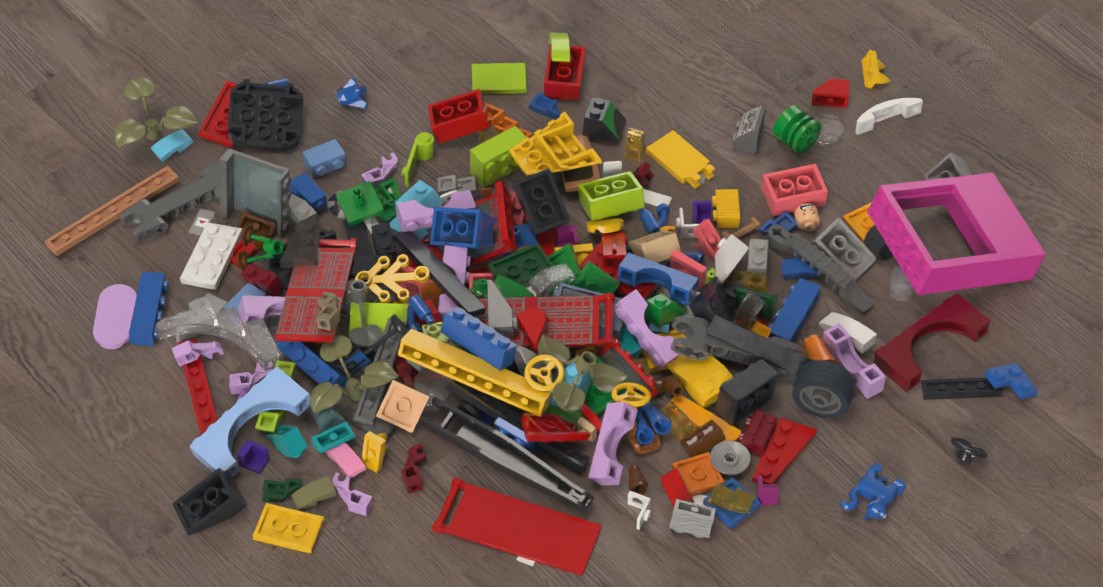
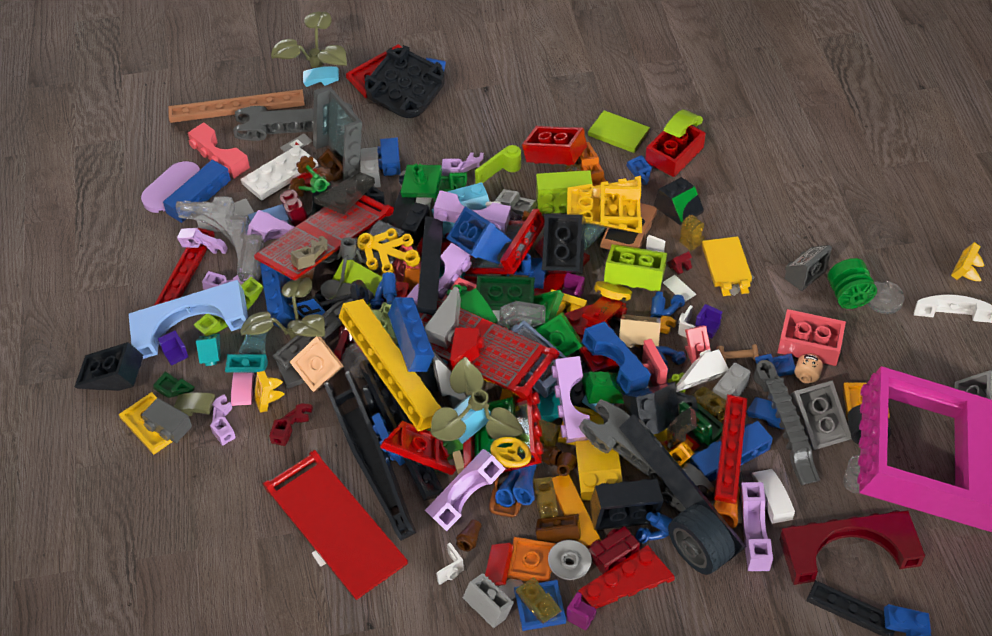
camera: 35 degrees right, 0 degrees up
(110, 258) = (204, 140): none -> coral arch
(307, 517) = (166, 421): none -> dark grey brick
(324, 158) = (425, 134): medium blue brick -> none
(352, 94) = (487, 94): blue rock -> none
(544, 380) = (446, 400): yellow piece -> none
(726, 208) = (736, 326): yellow brick -> none
(780, 393) = (657, 520): none -> blue plant
(796, 309) = (731, 449): none -> red tile
(832, 94) = (912, 267): red slope -> none

